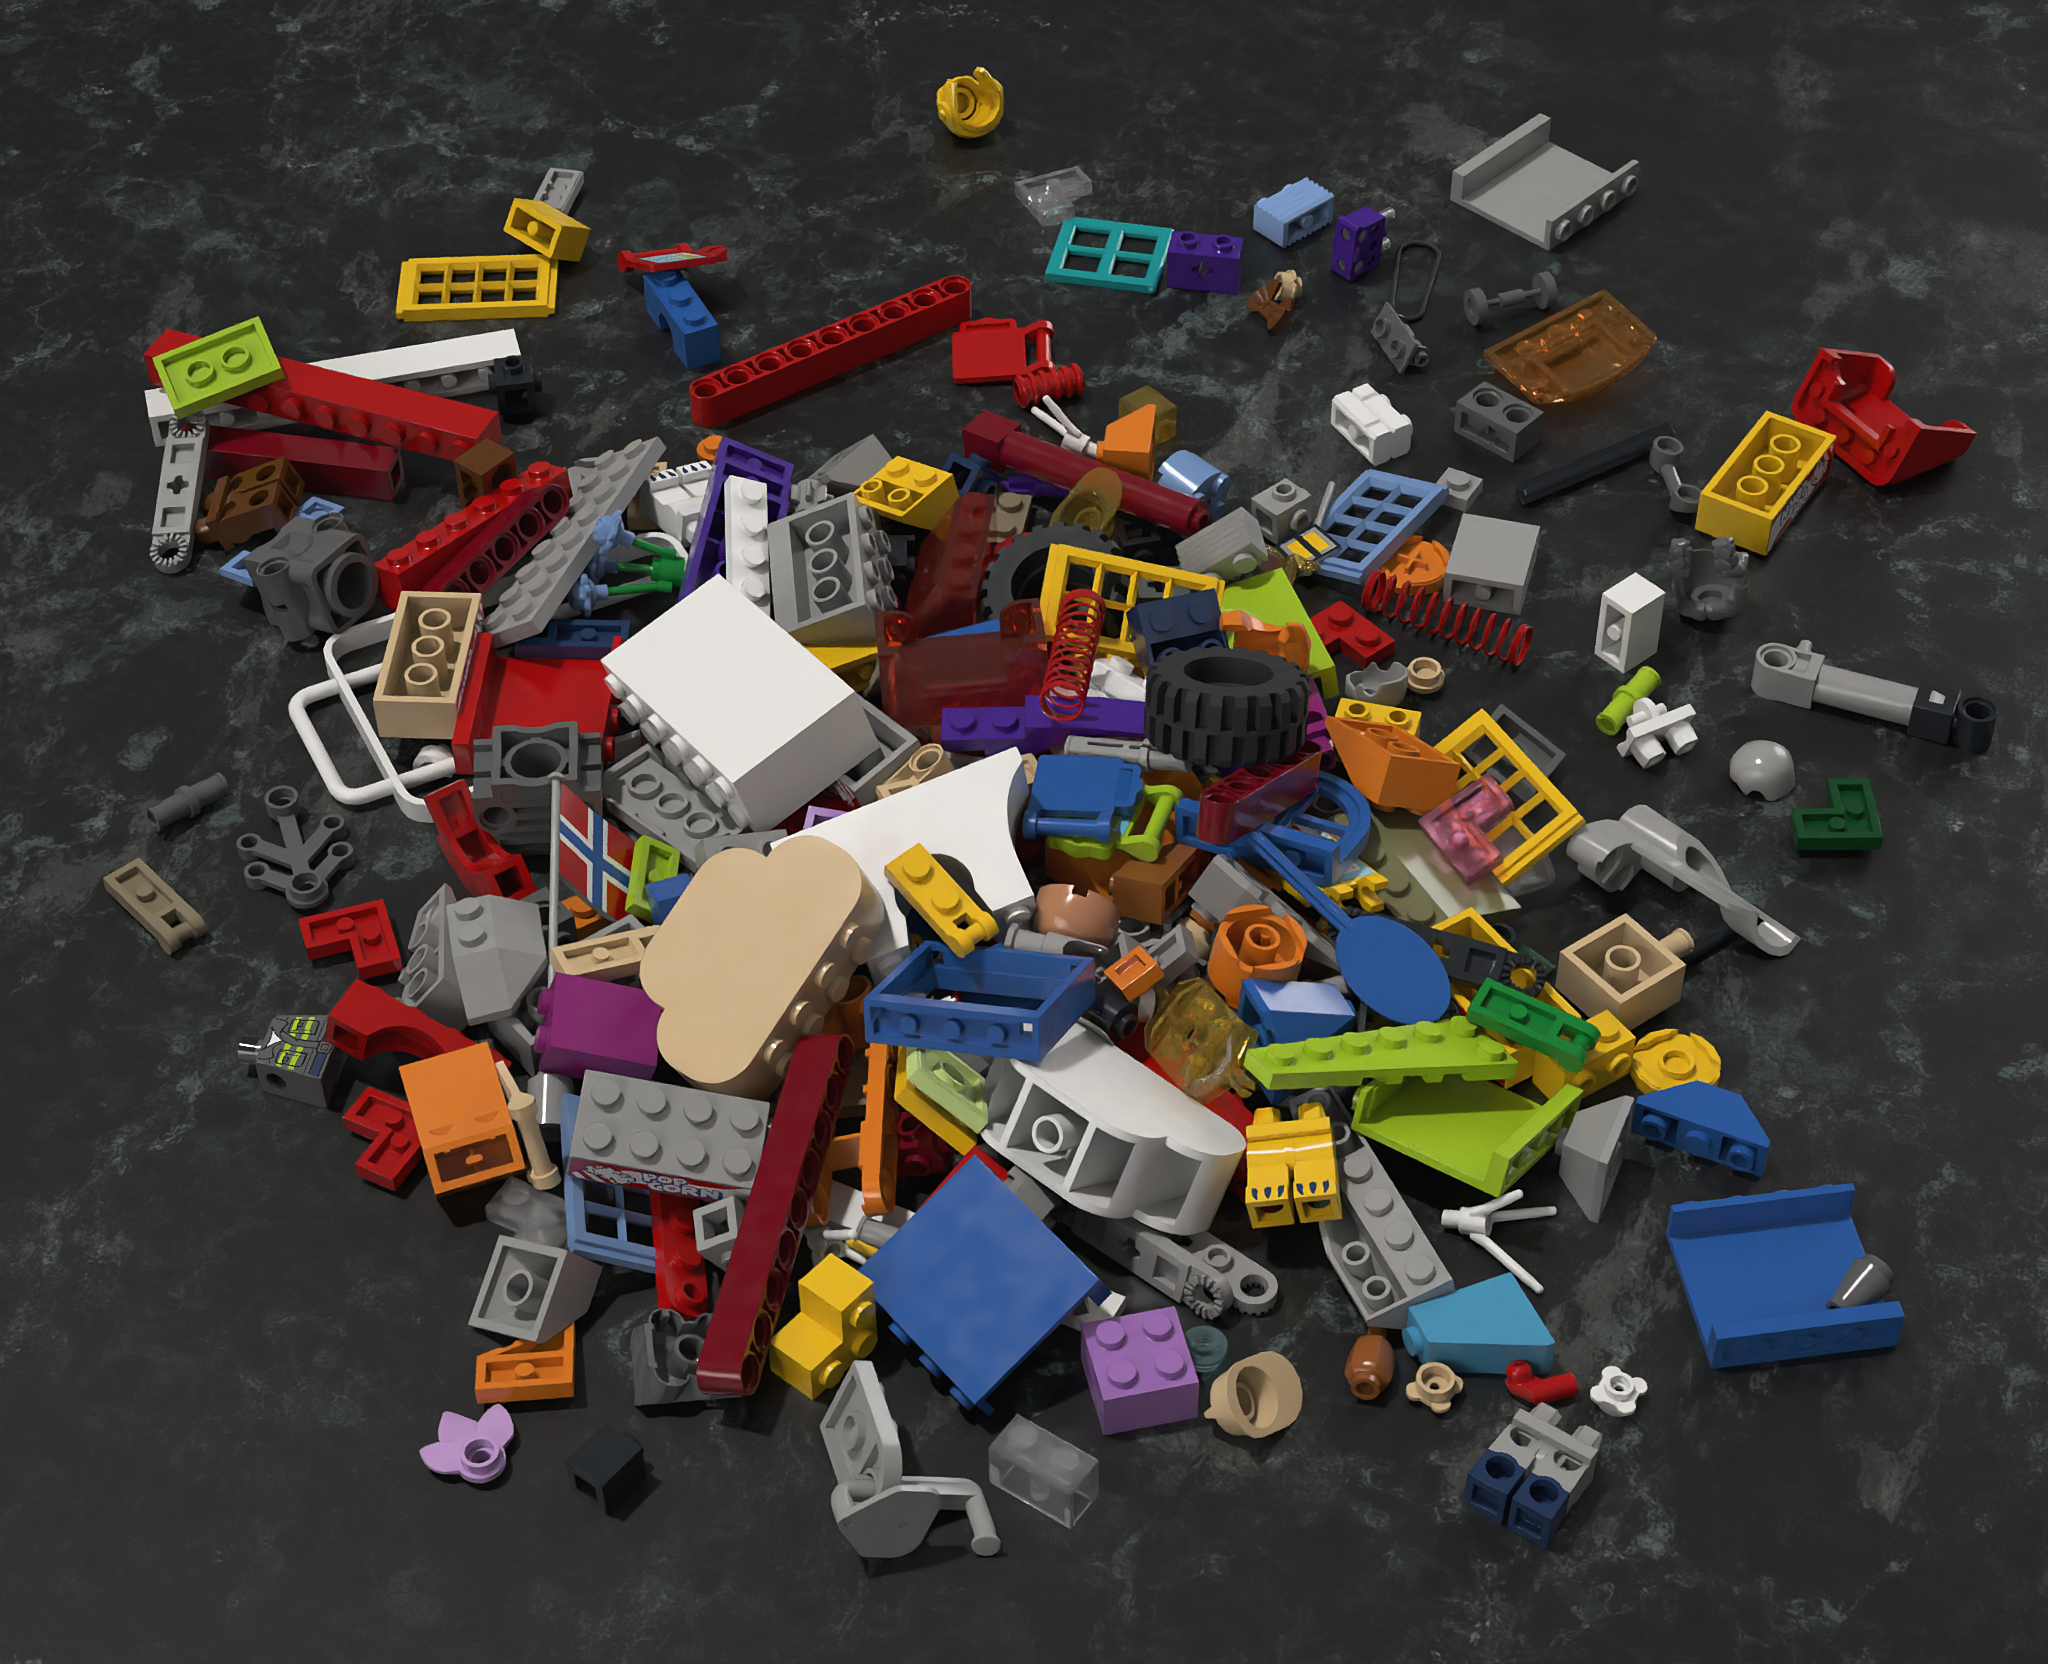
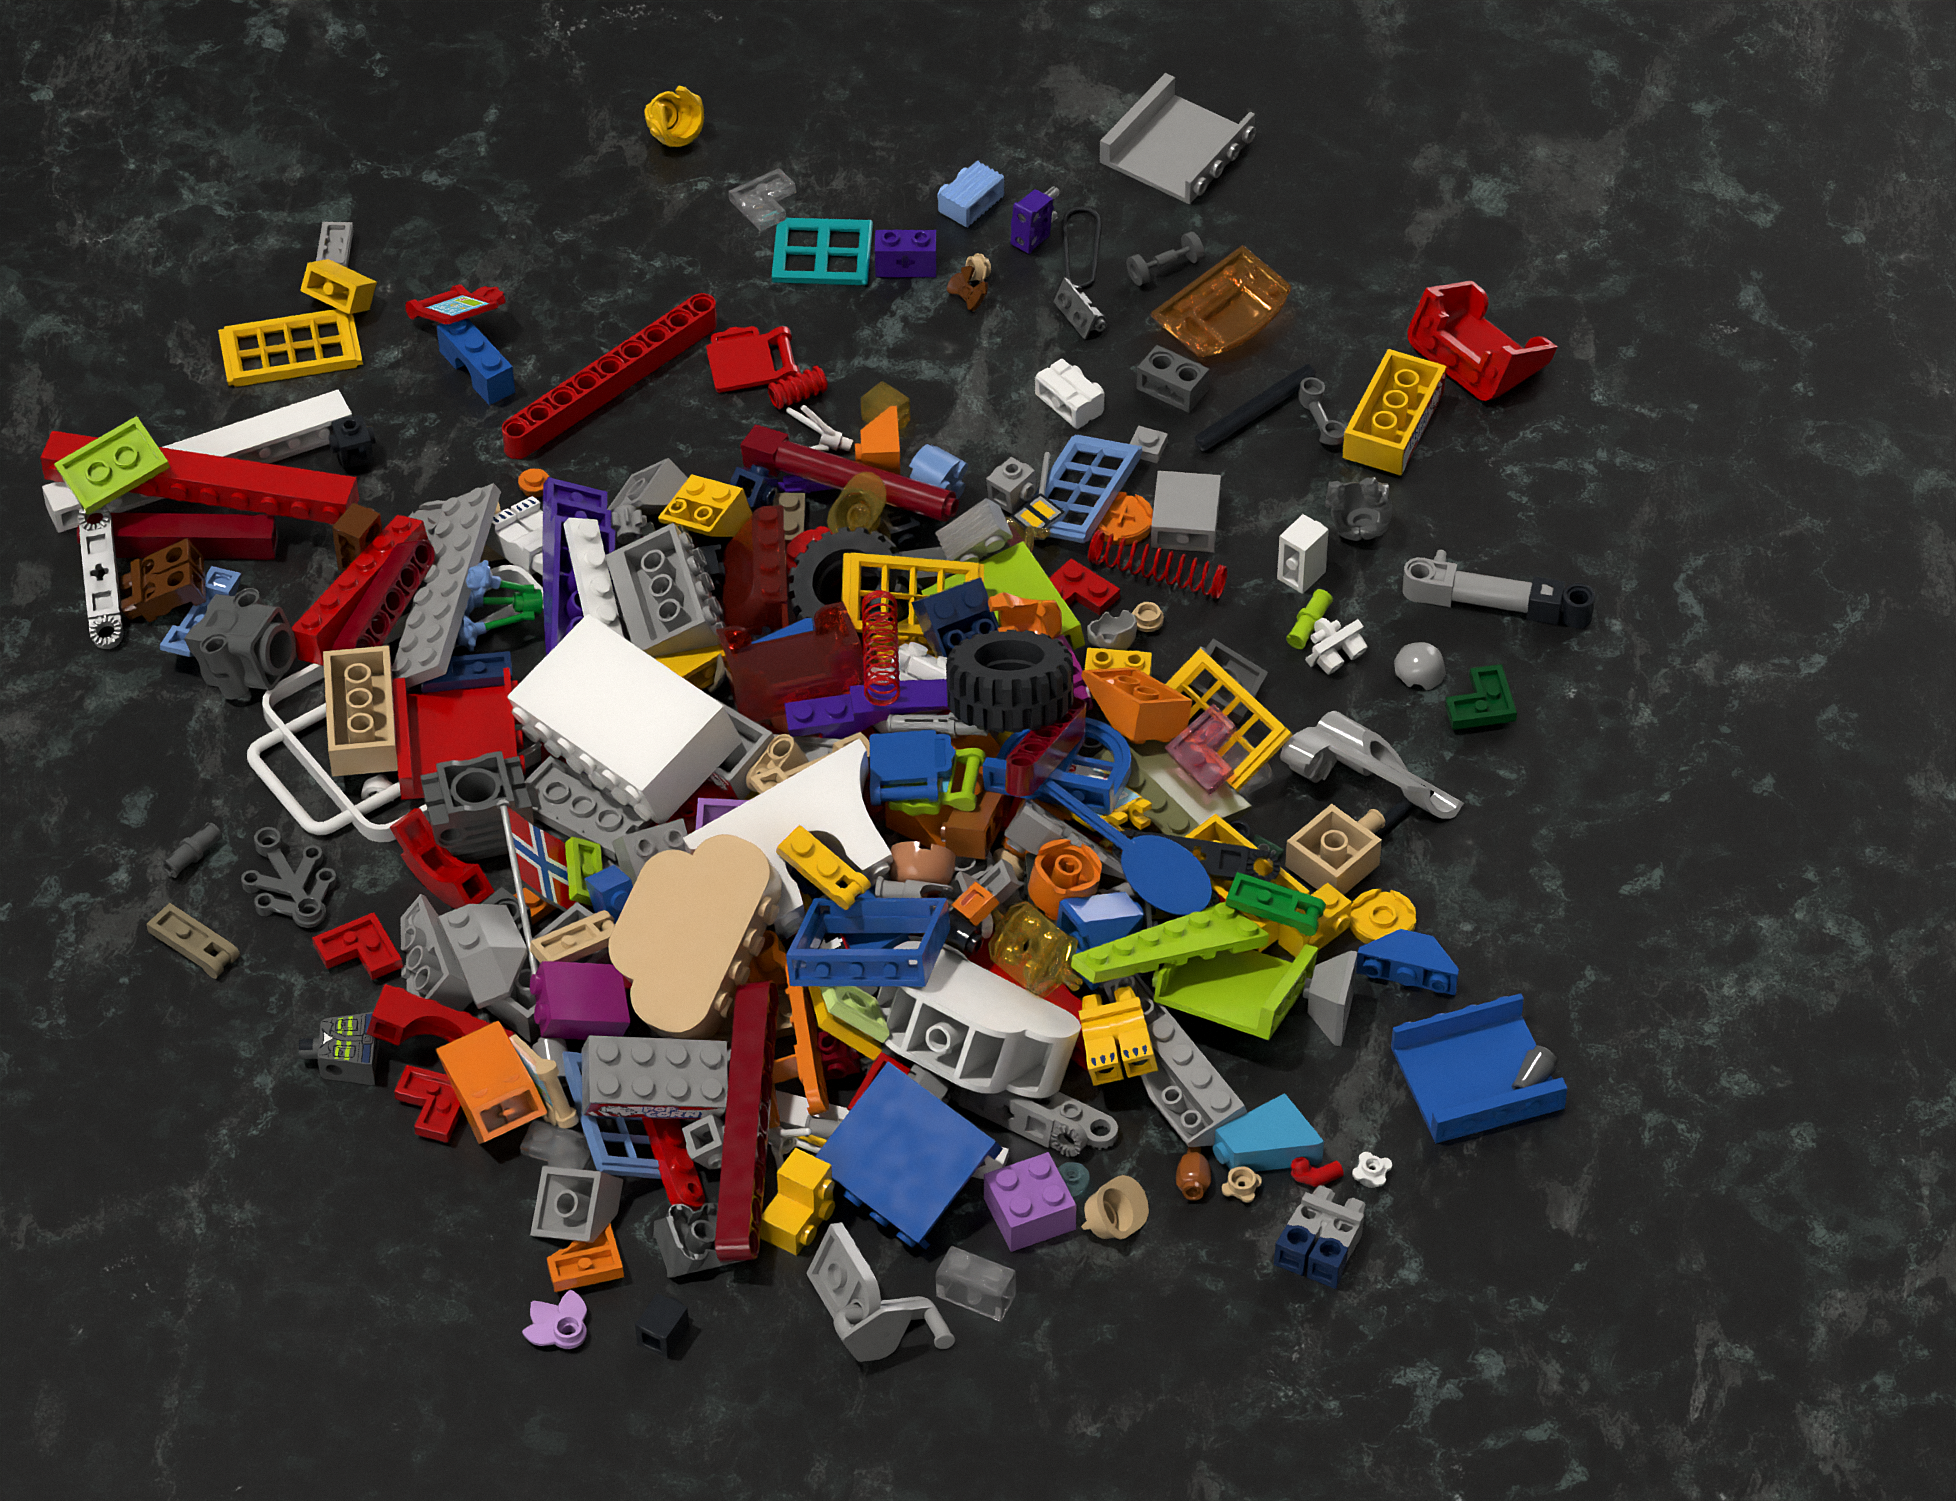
camera: 10 degrees left, 5 degrees up
(1478, 1223) = (1255, 1060): white plant -> none

